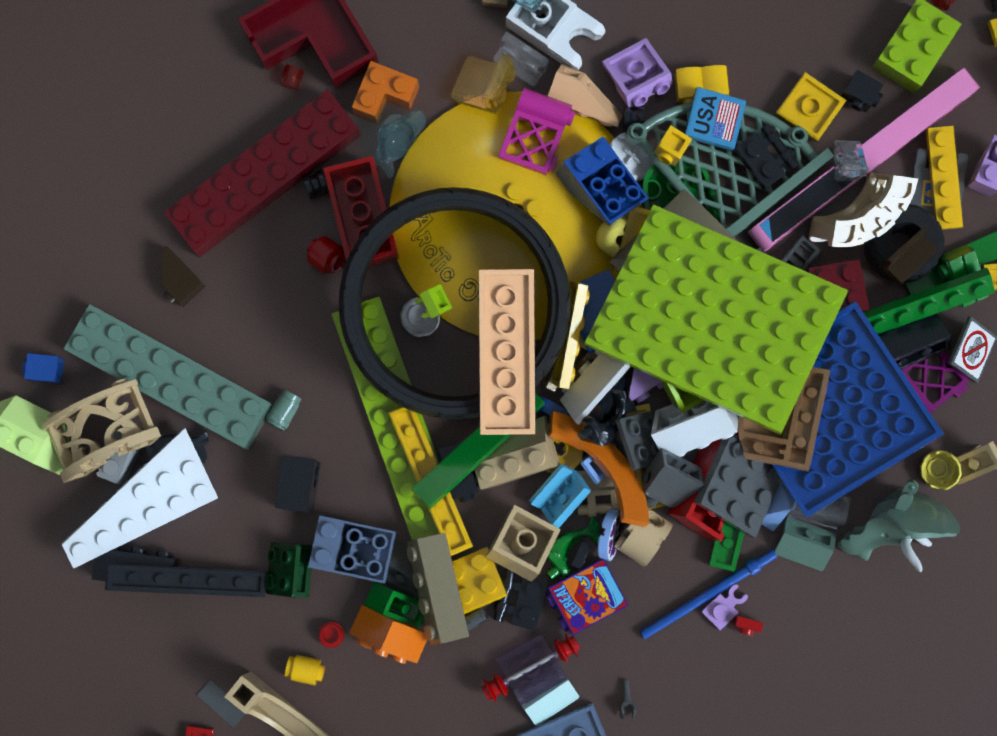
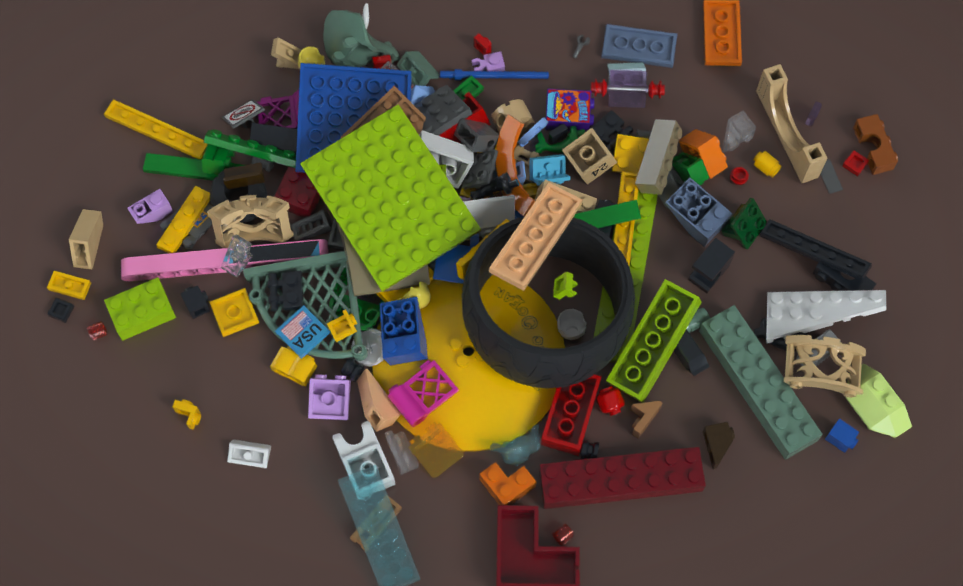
camera: 150 degrees left, 15 degrees down
(275, 266) = (646, 412): none -> medium nougat slope
(279, 371) = (691, 354): none -> black piece
(311, 344) = (654, 341): none -> lime brick
(366, 693) = (738, 129): none -> clear slope
(854, 522) = (379, 61): none -> red tile

